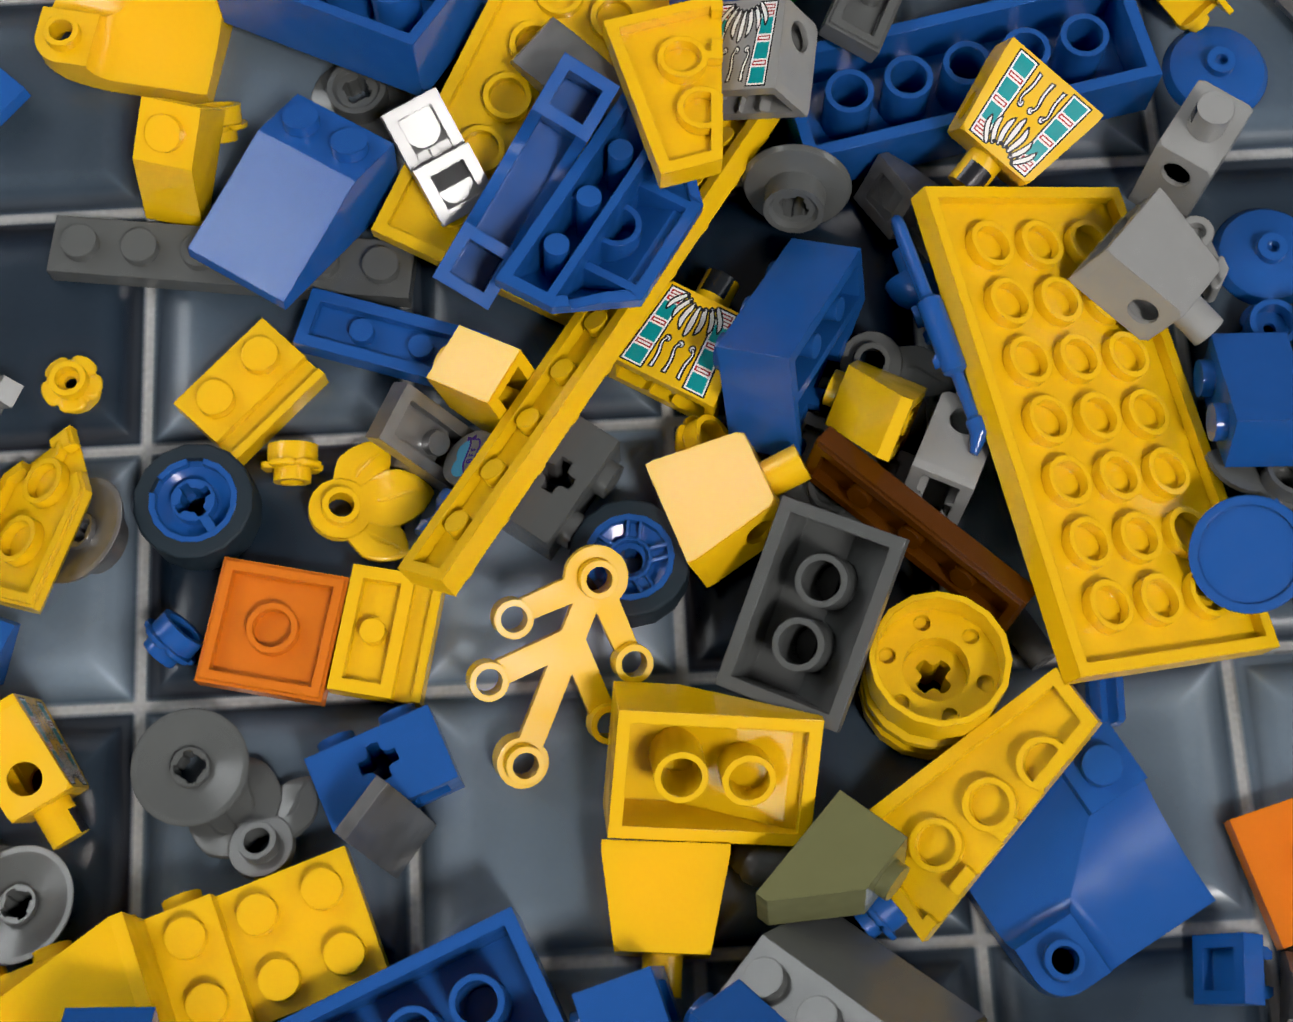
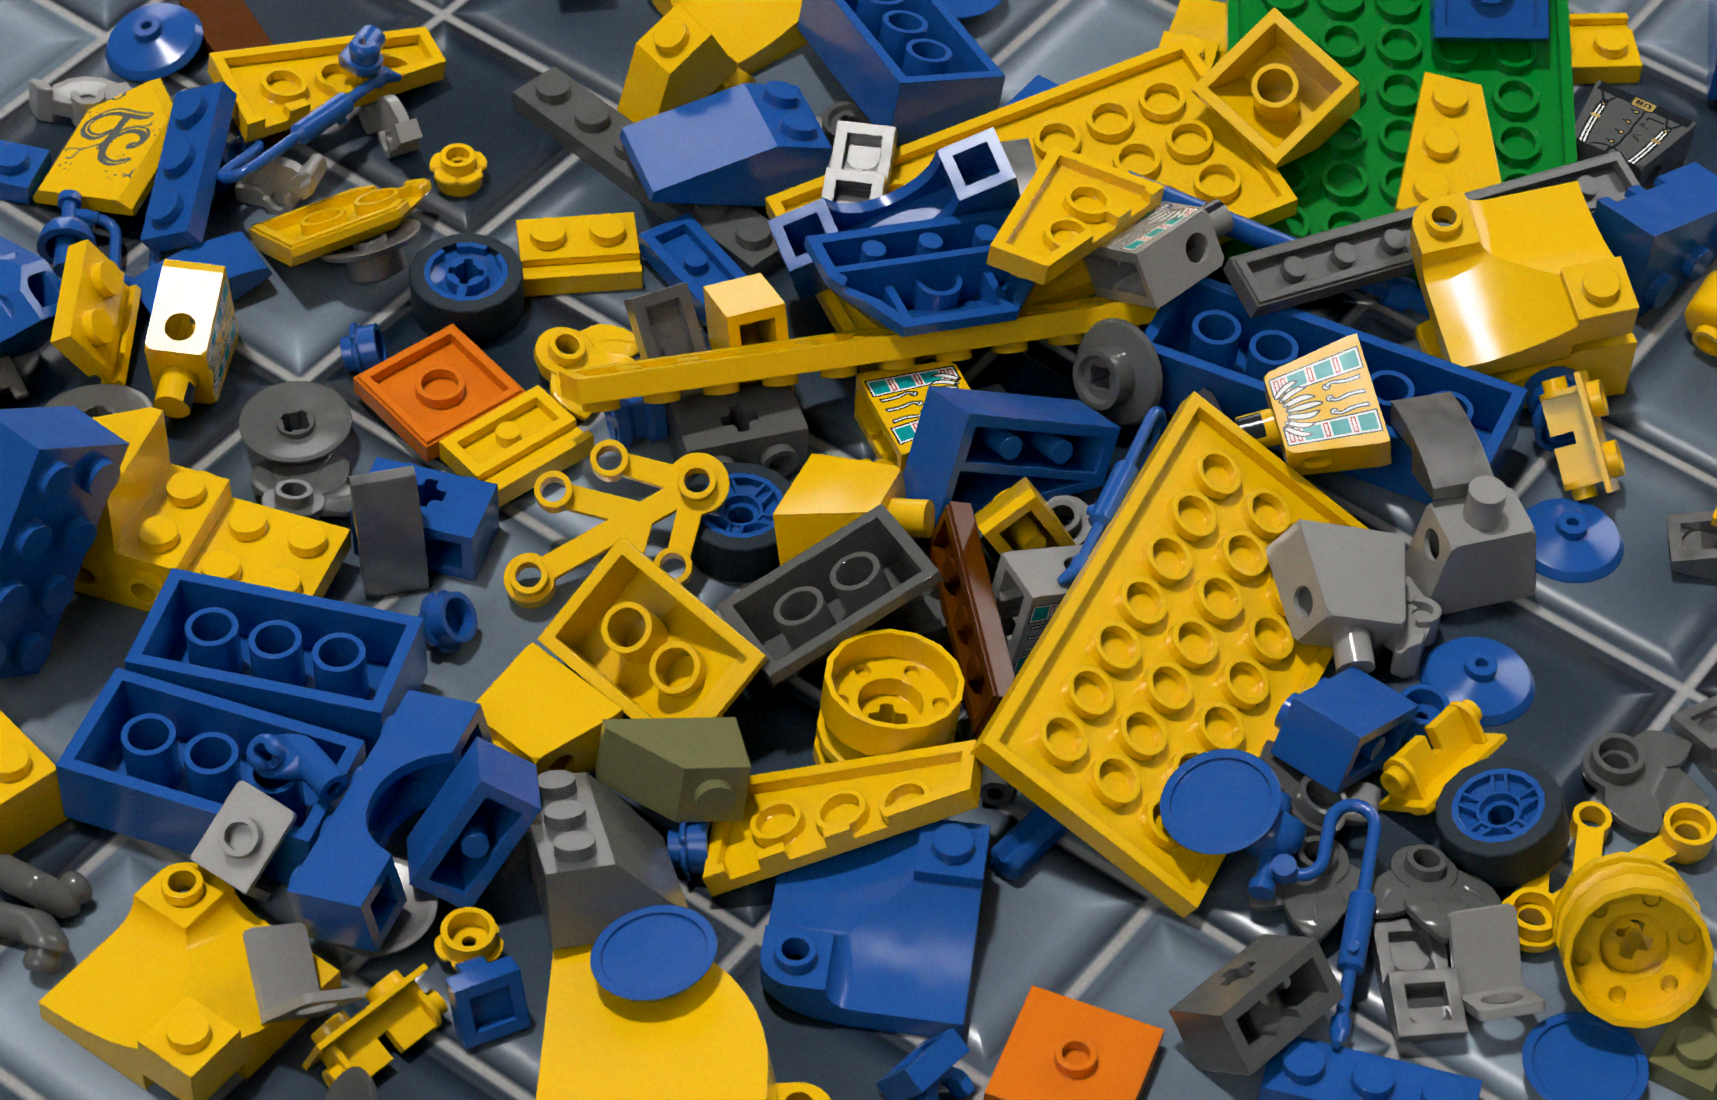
camera: 35 degrees right, 25 degrees down
(292, 462) = (562, 305): yellow plate -> none
(494, 858) = (448, 619): none -> blue plate
(1135, 83) = (1441, 442): none -> flat silver slope

